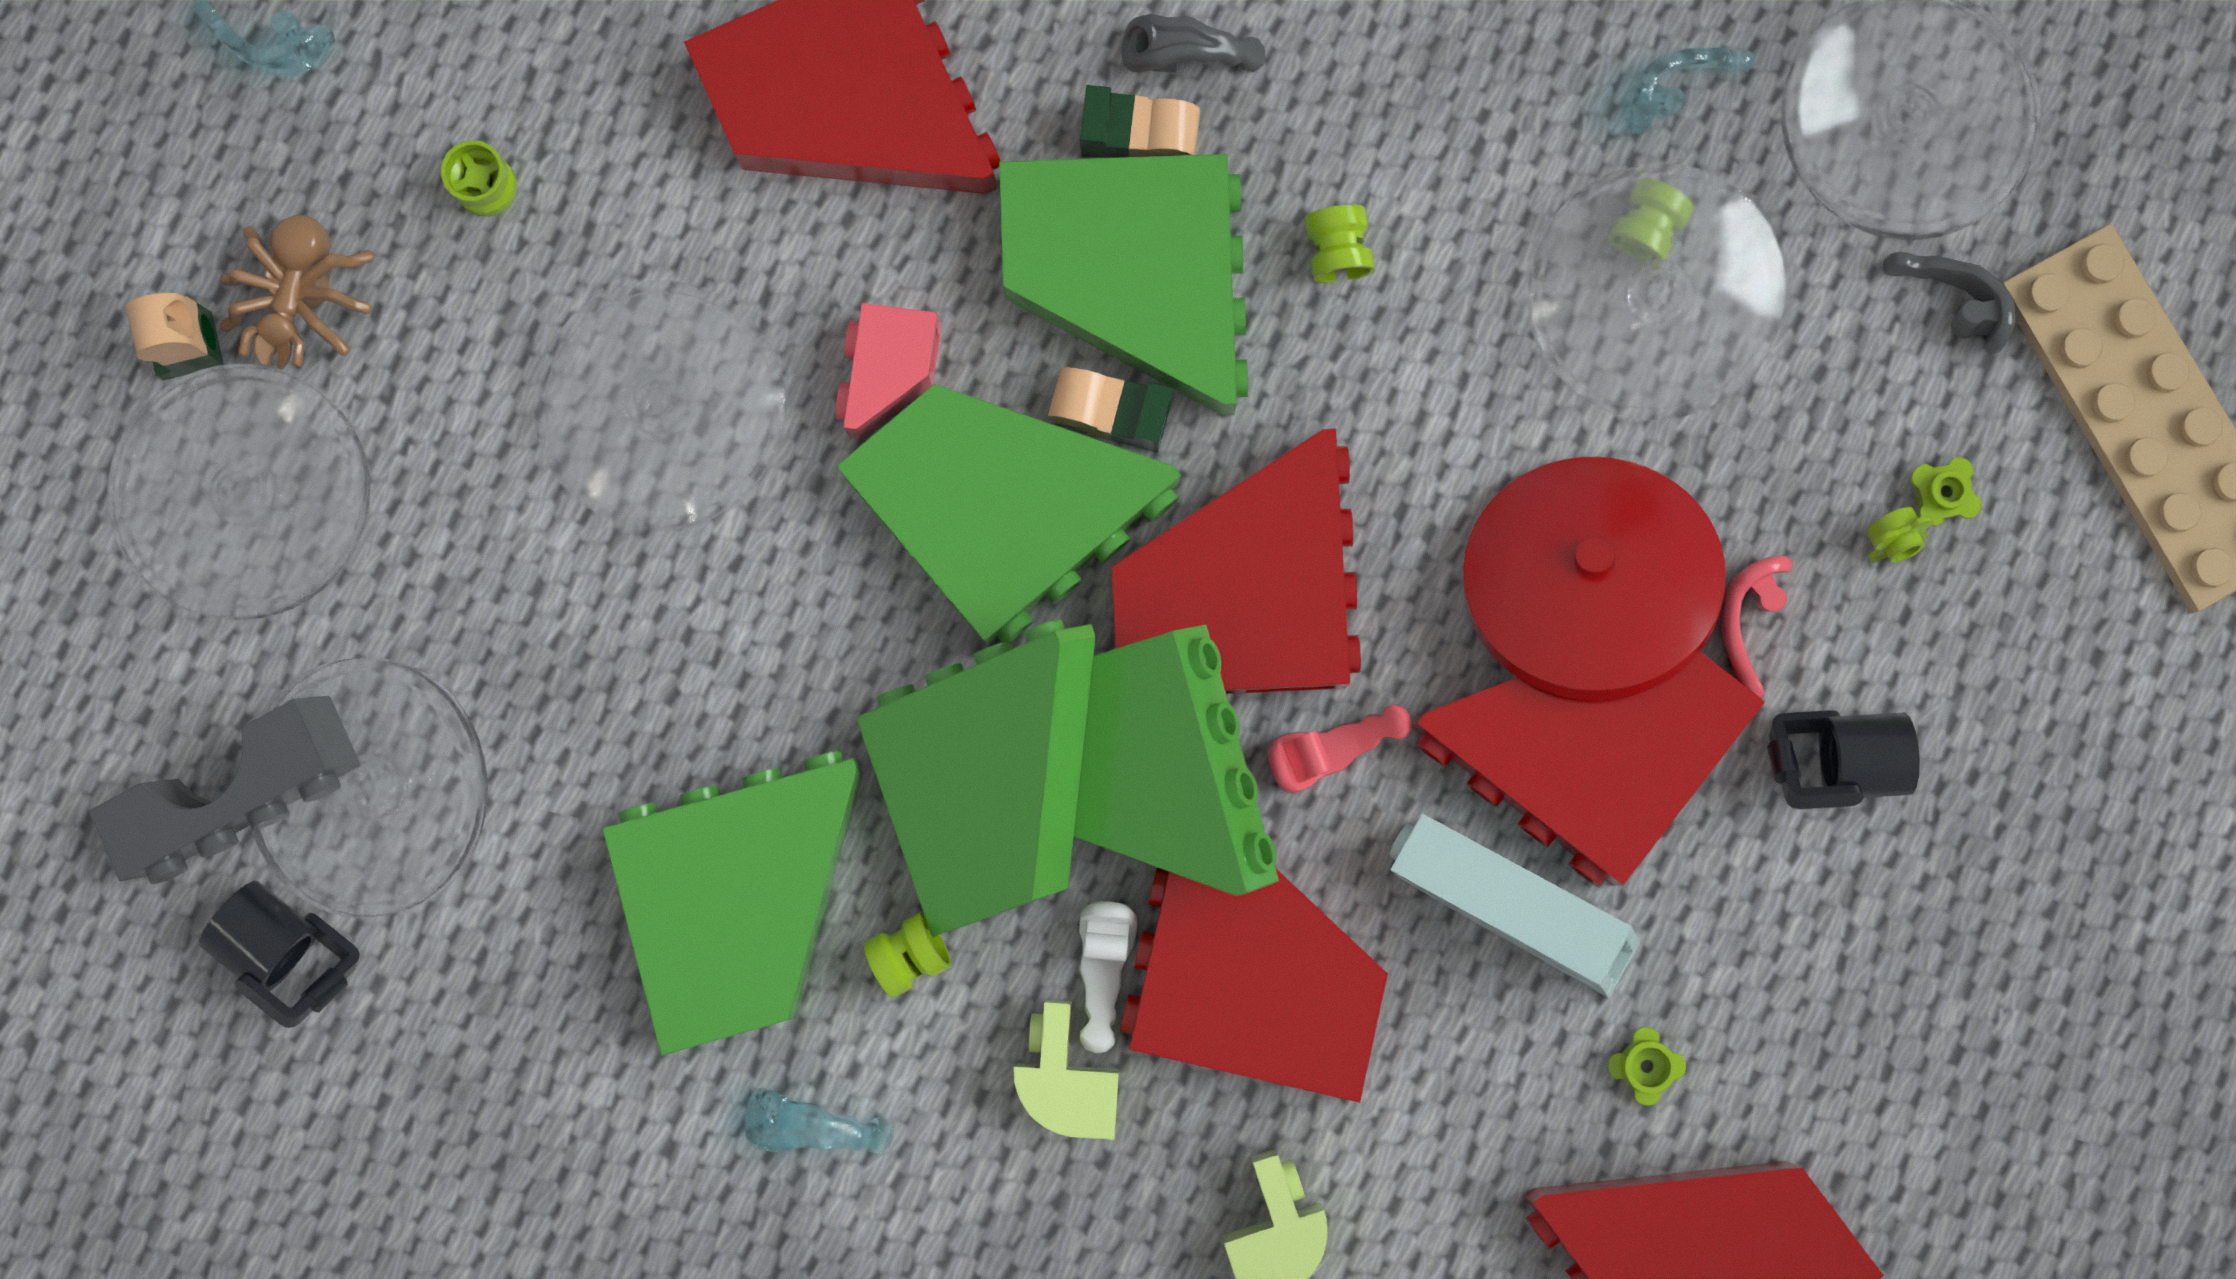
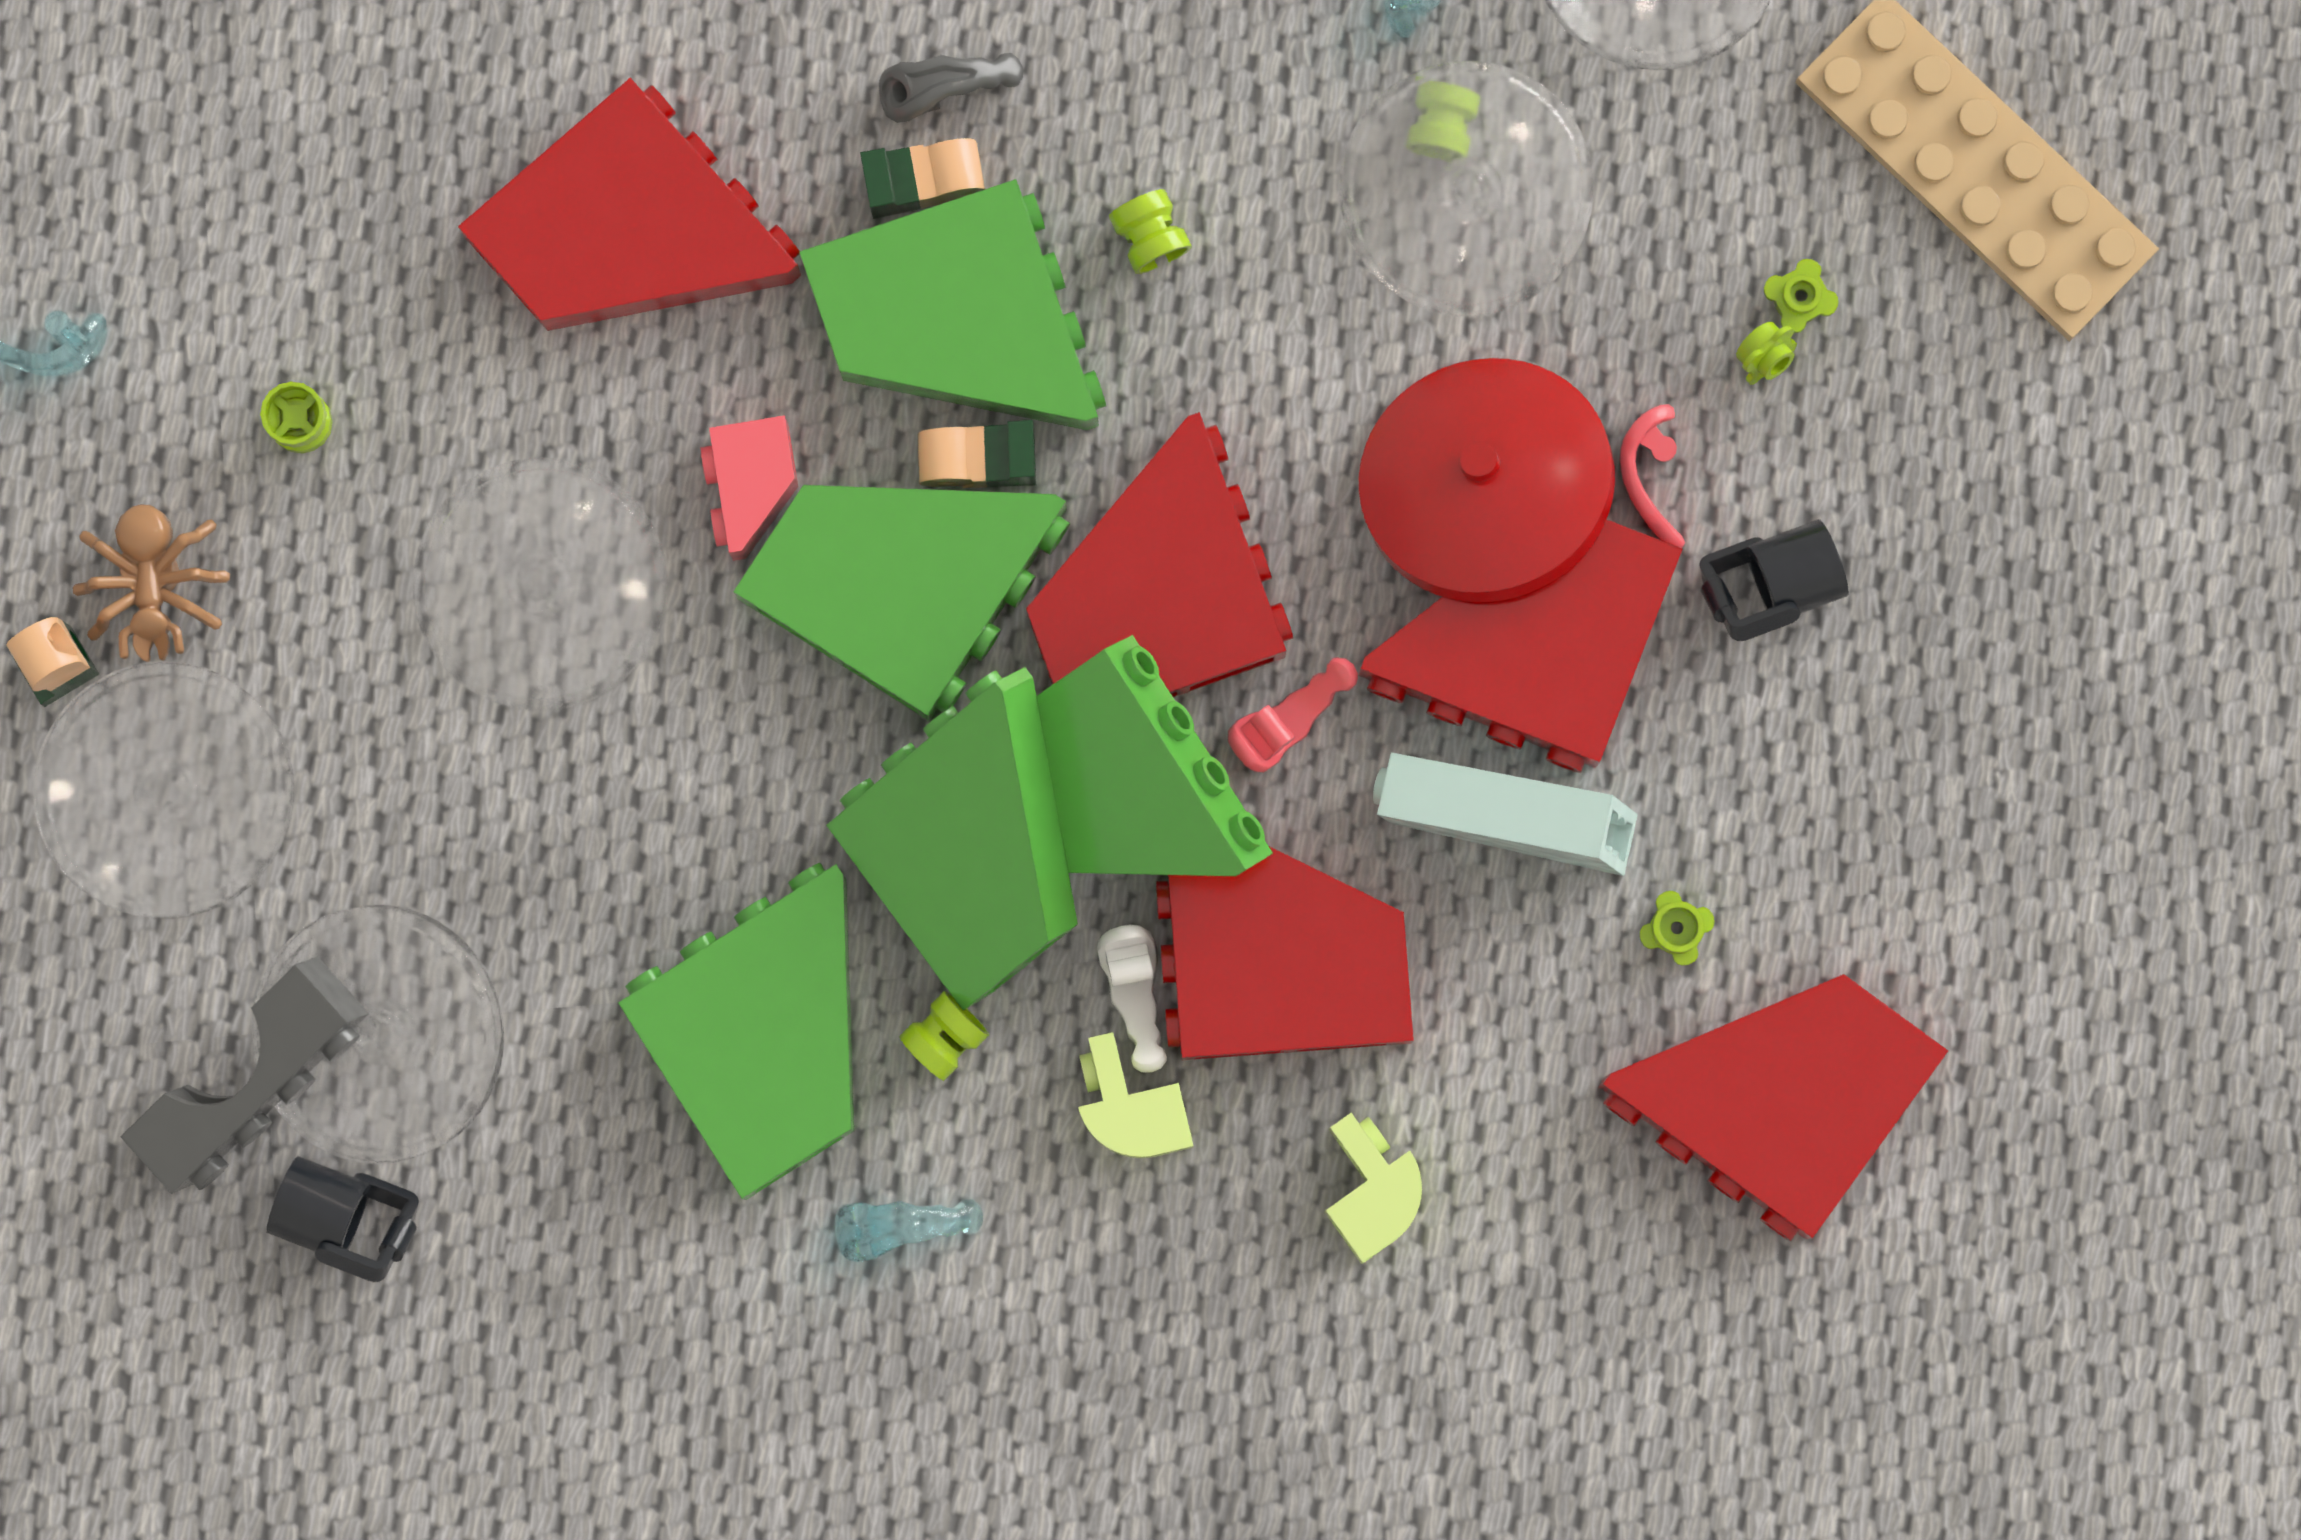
camera: 20 degrees left, 0 degrees up
(1986, 315) = (1792, 117): dark grey piece -> none

